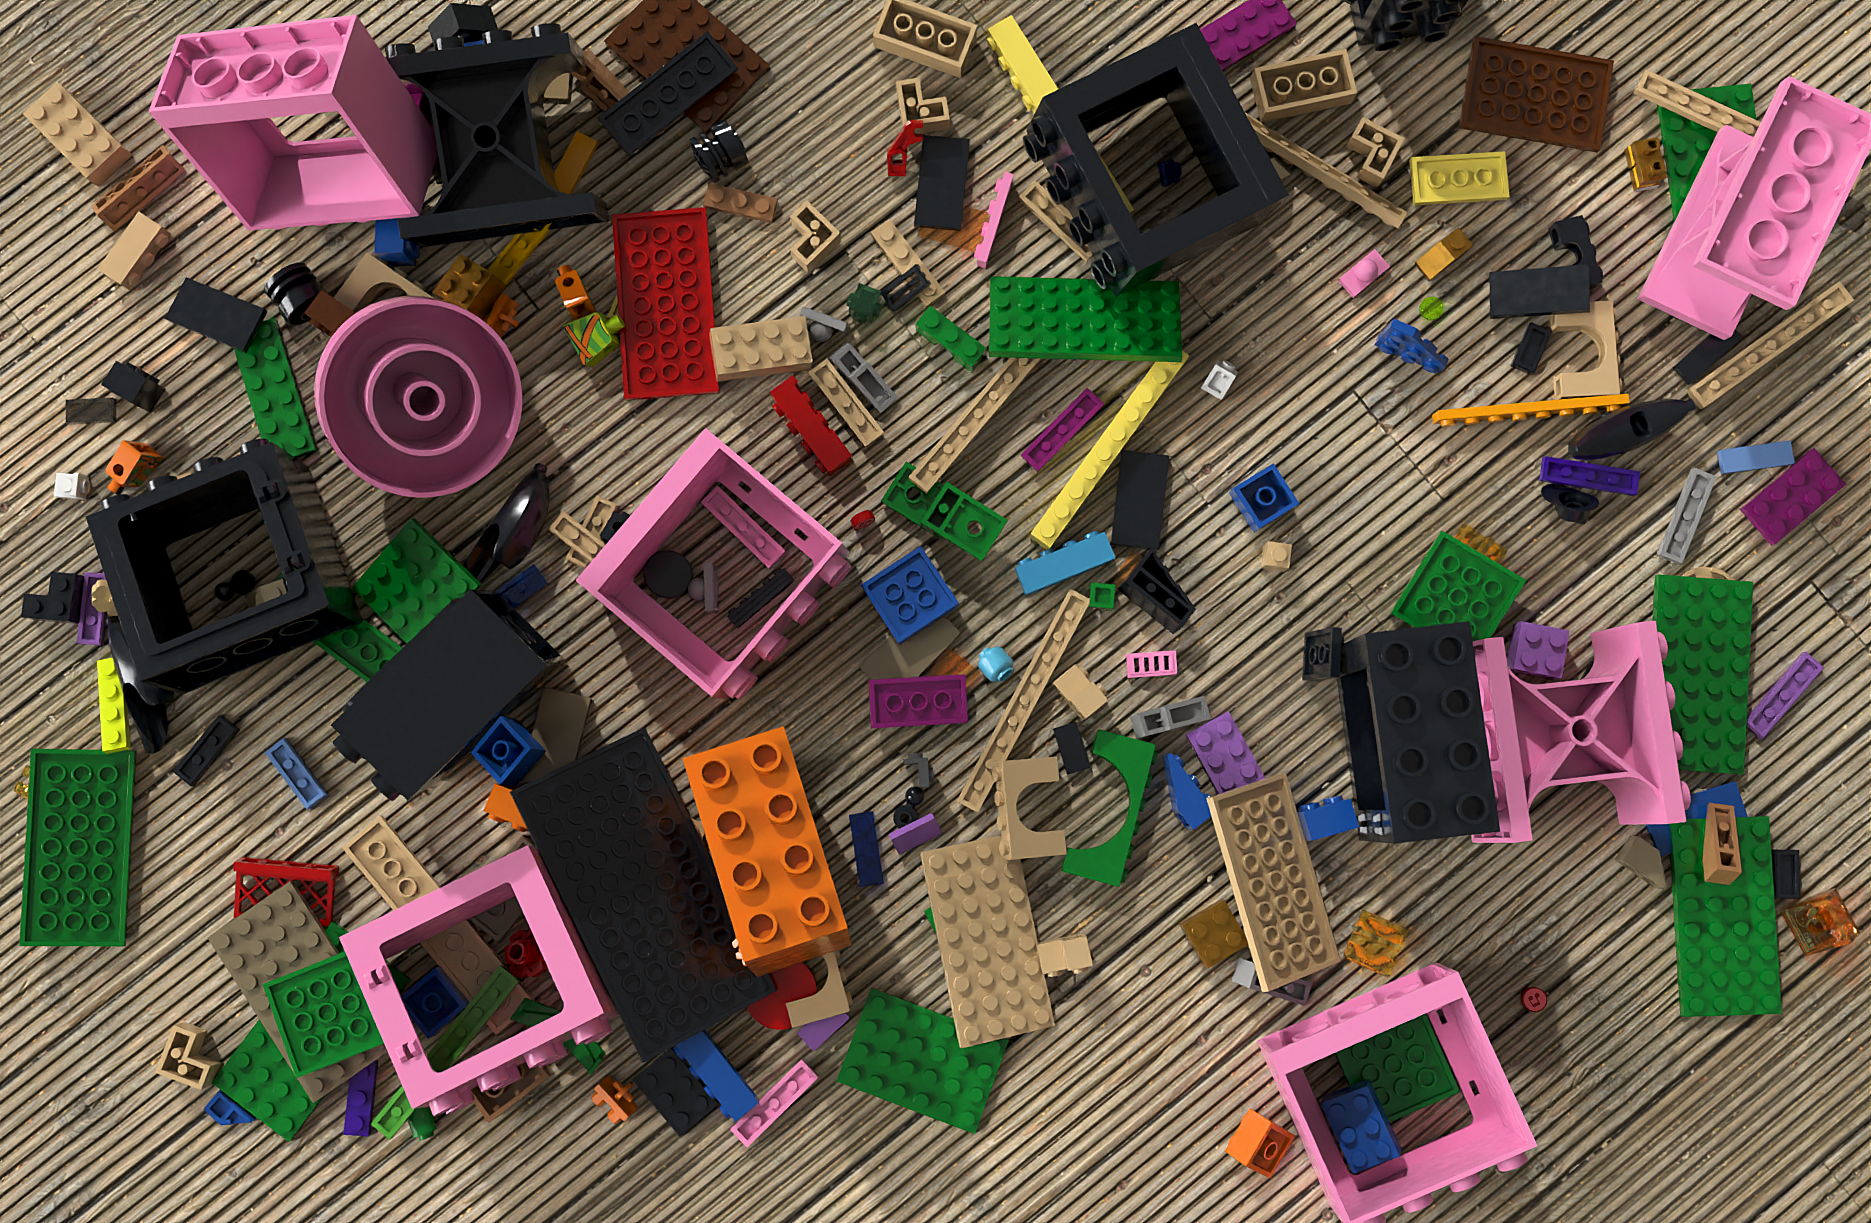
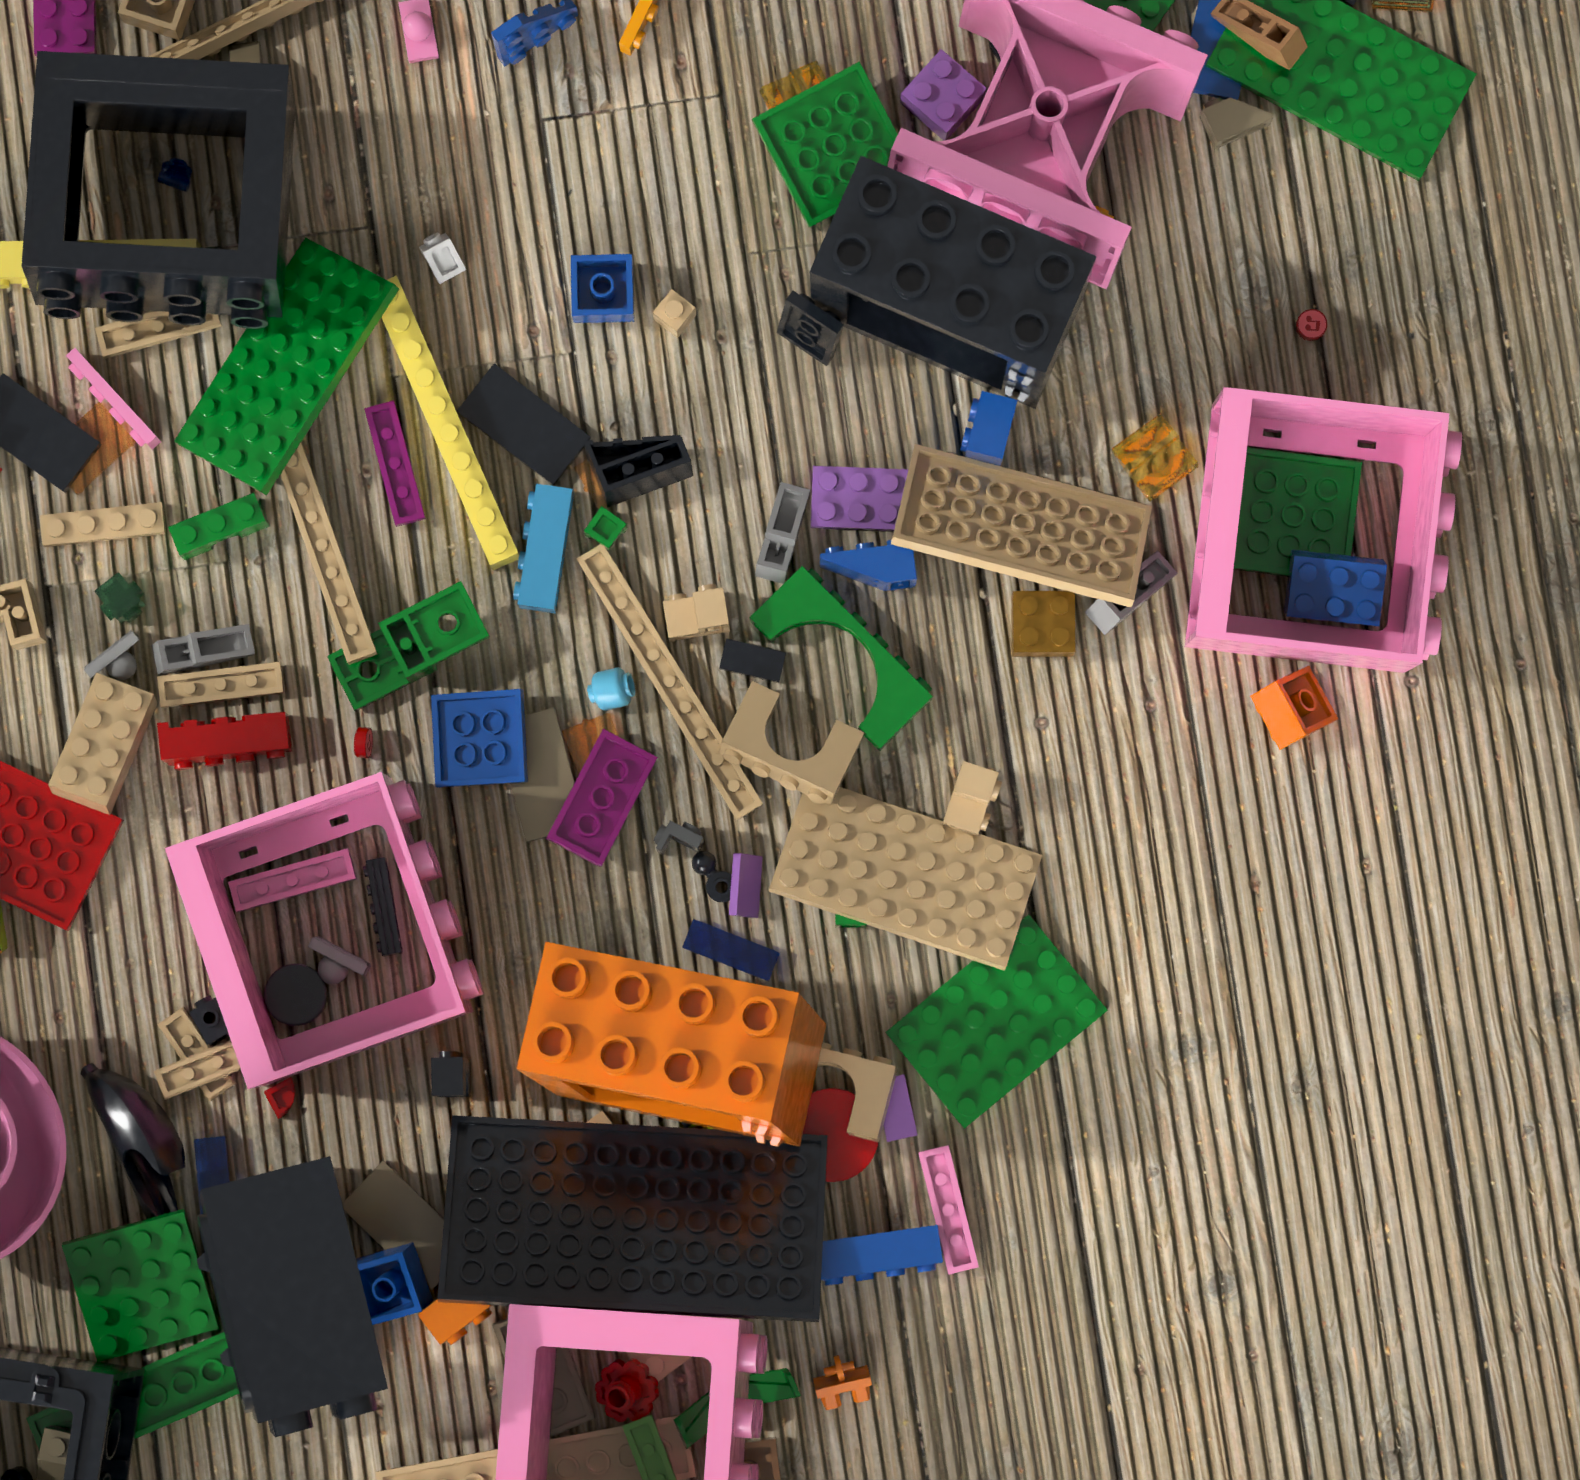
camera: 60 degrees left, 0 degrees up
(593, 607) = (281, 1097): none -> red tile
(669, 710) = (450, 1075): none -> black arch
(675, 1092) = (873, 1313): black plate -> none
(920, 277) = (128, 517): black tile -> none
(1151, 655) = (714, 491): bright pink slope -> none

